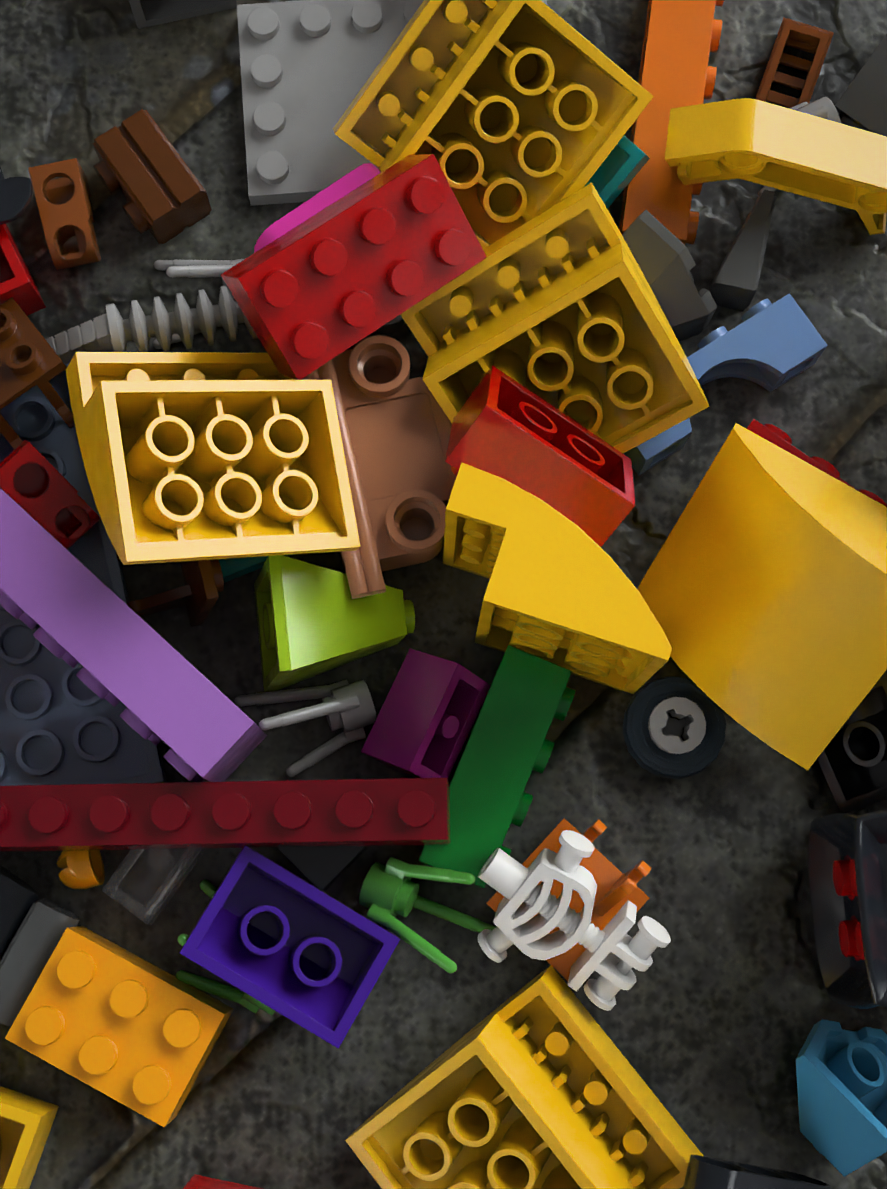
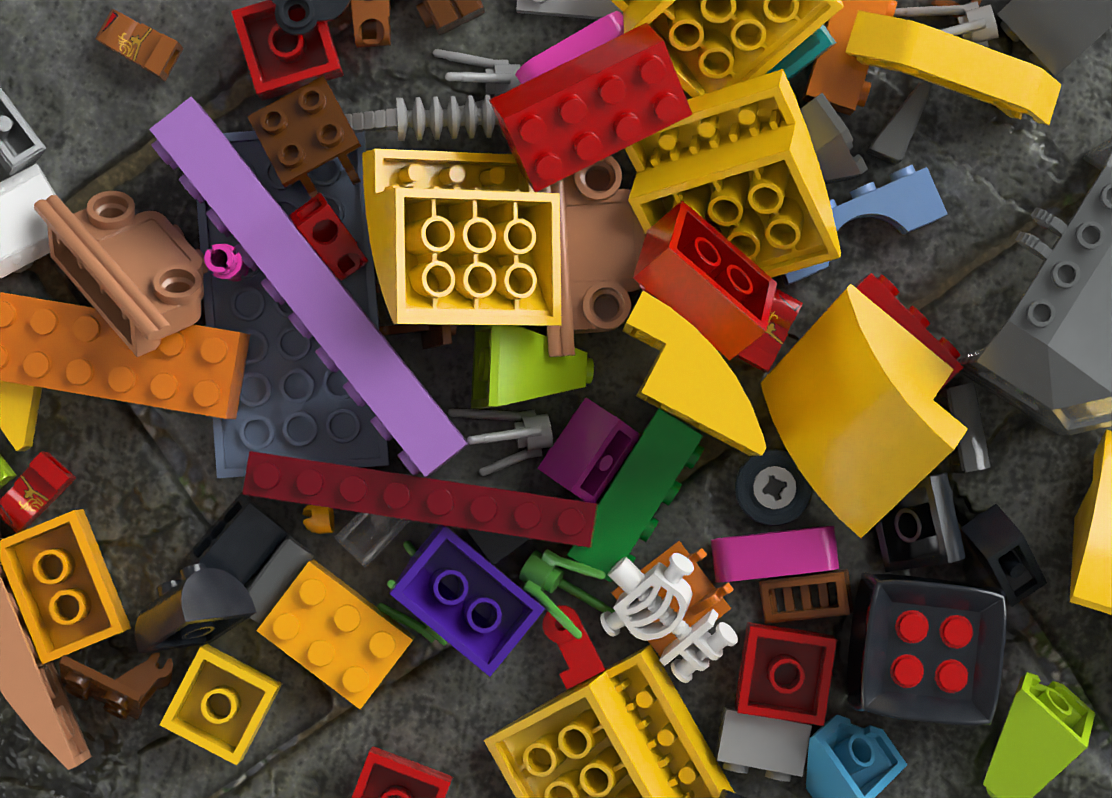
camera: 15 degrees right, 10 degrees up
(454, 992) = (578, 653): none -> red leg
(633, 537) = (765, 349): none -> red leg
(693, 814) = (774, 554): none -> dark pink beam
(699, 889) = (843, 590): none -> dark orange slope
(728, 1077) = (762, 744): none -> light grey brick
(742, 975) = (785, 673): none -> red brick

